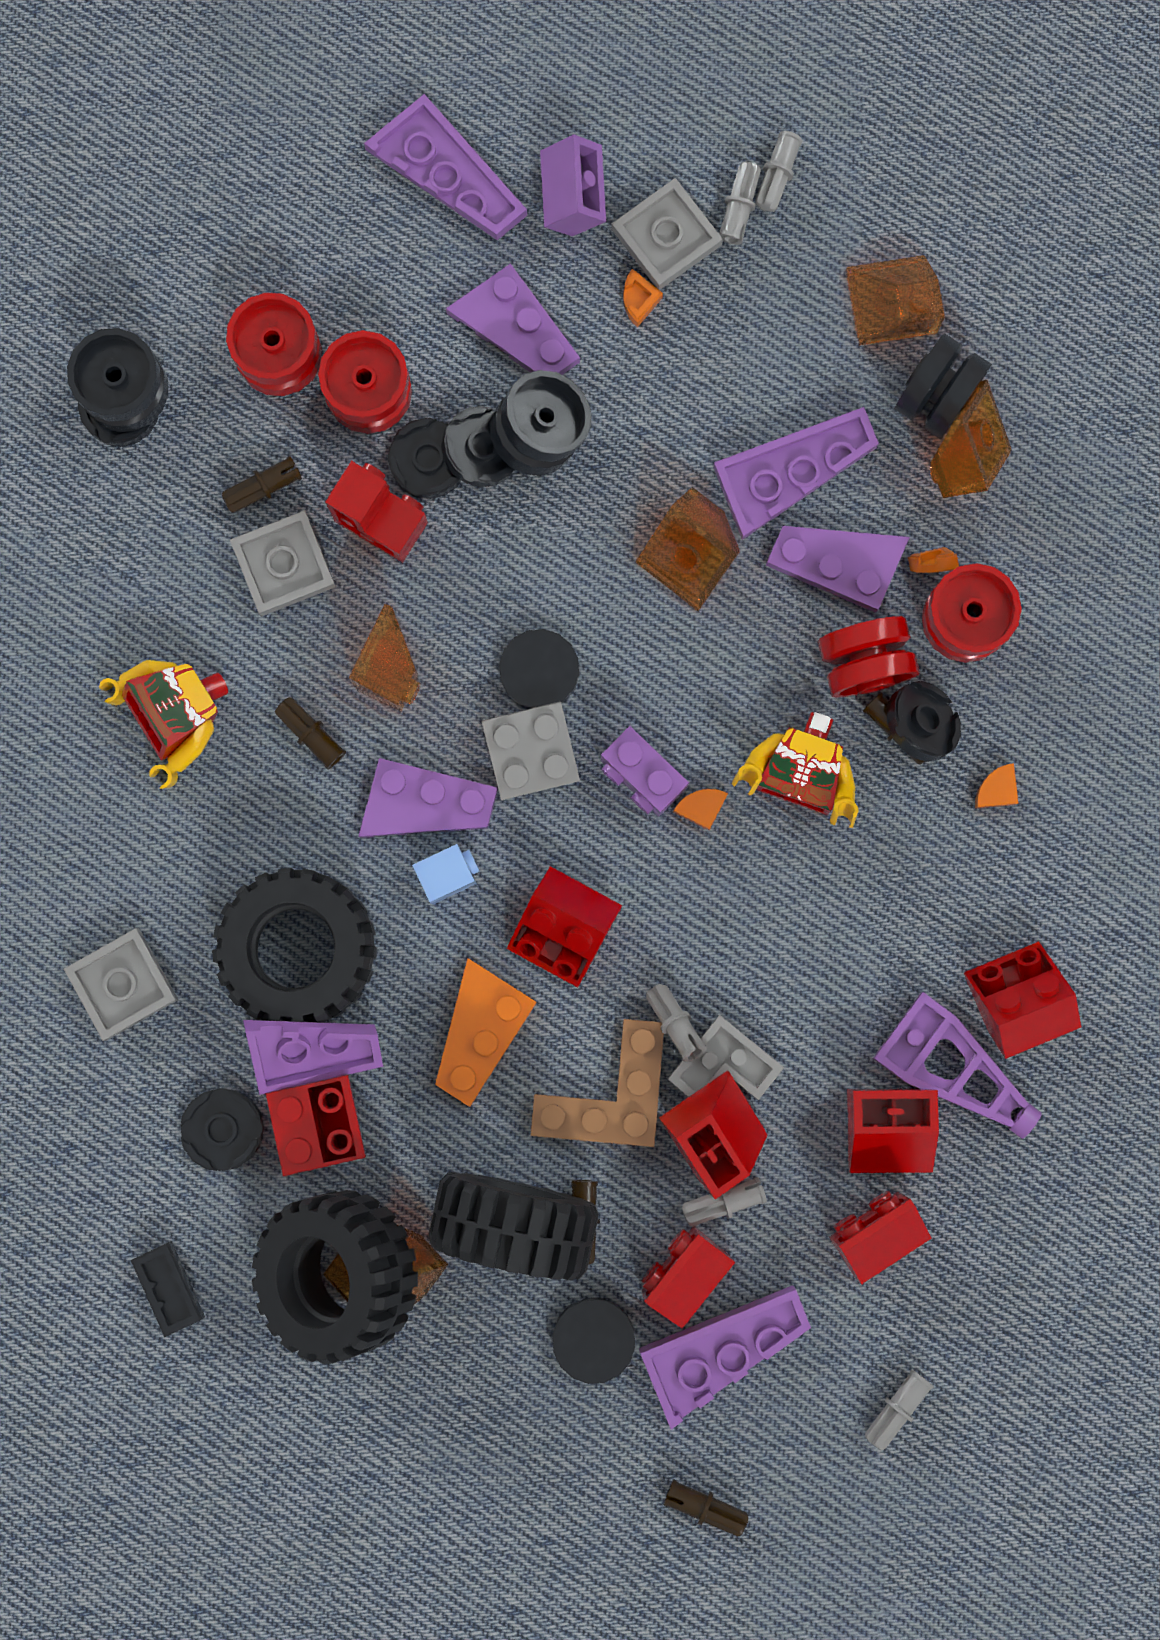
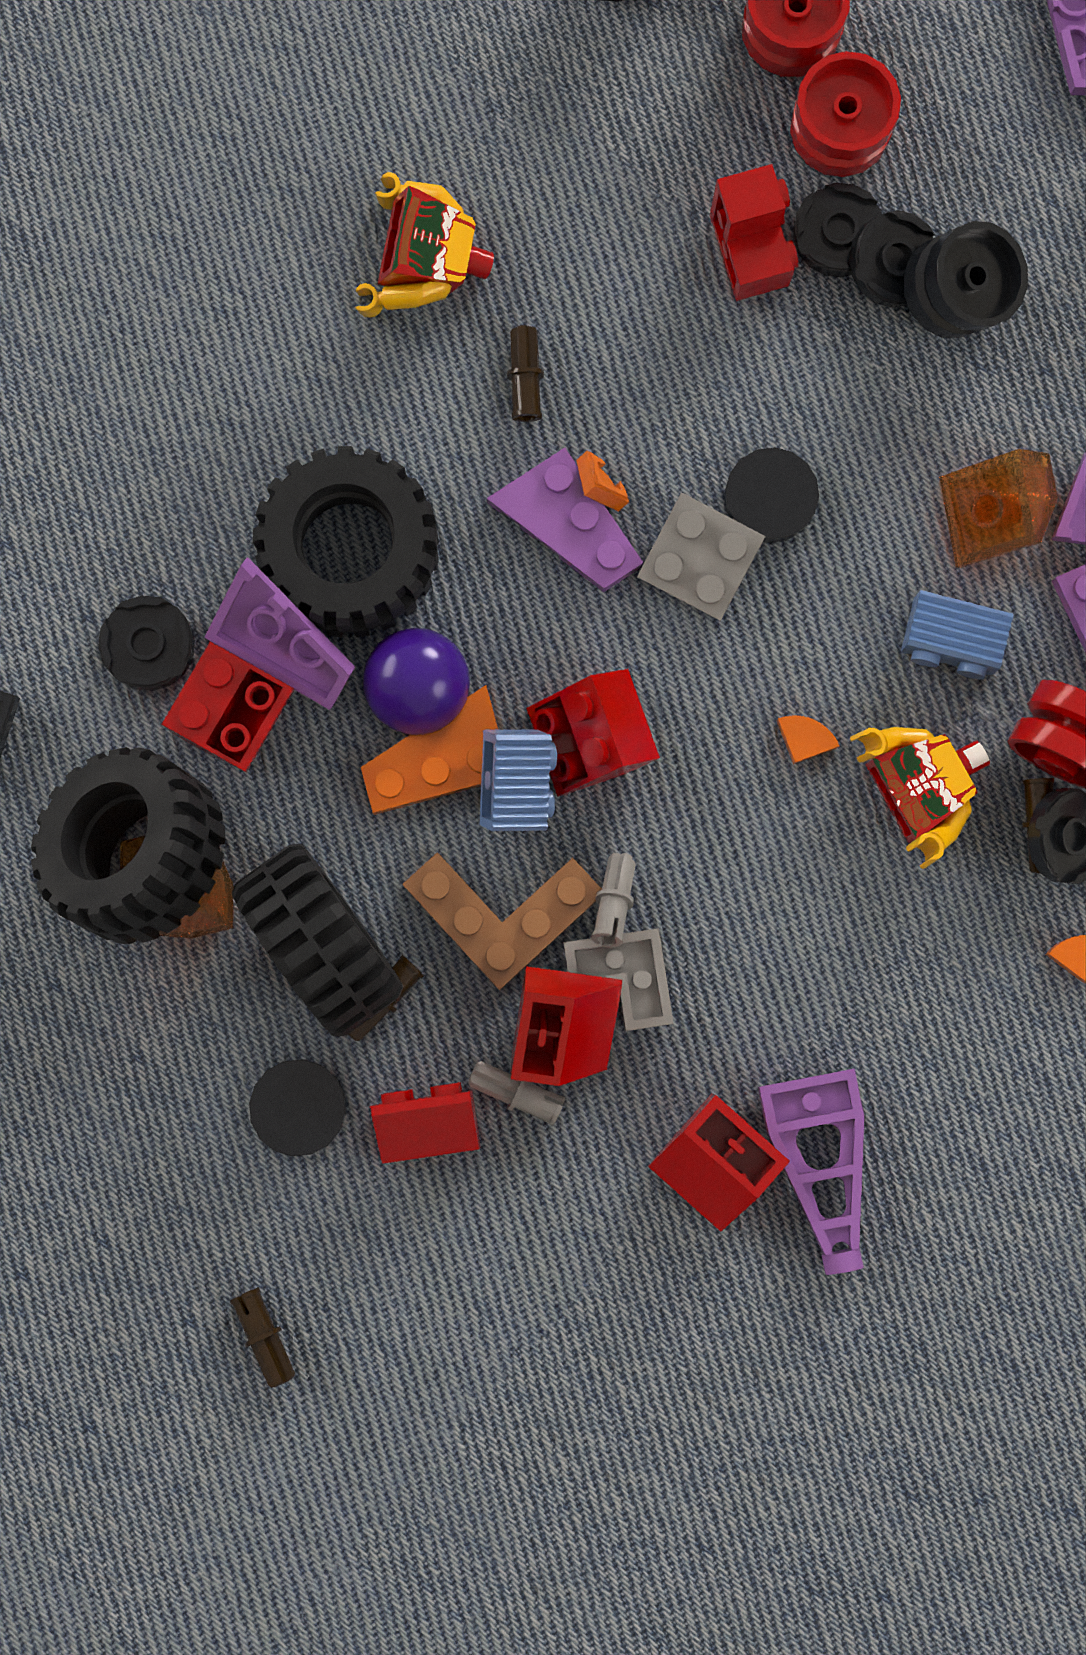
camera: 40 degrees right, 0 degrees up
(120, 984) = (173, 443): light grey plate -> none
(260, 485) = (674, 126): dark brown axle -> none
(282, 563) = (632, 209): light grey plate -> none
(386, 665) = (642, 369): clear orange slope -> none
(421, 996) = (416, 681): none -> dark purple piece
(422, 762) = (597, 483): none -> orange tile
(446, 873) = (533, 596): light blue brick -> none
(514, 321) = (1021, 177): medium lavender wing -> none
(544, 1002) = (517, 780): none -> medium blue brick
(643, 772) = (782, 661): medium lavender brick -> none
(721, 1350) = (386, 1212): medium lavender wing -> none
(737, 655) = (956, 634): none -> medium blue brick
(879, 1235) = (625, 1243): red slope -> none
(898, 1410) = (504, 1407): light grey axle -> none
(1023, 999) = (937, 1156): red slope -> none

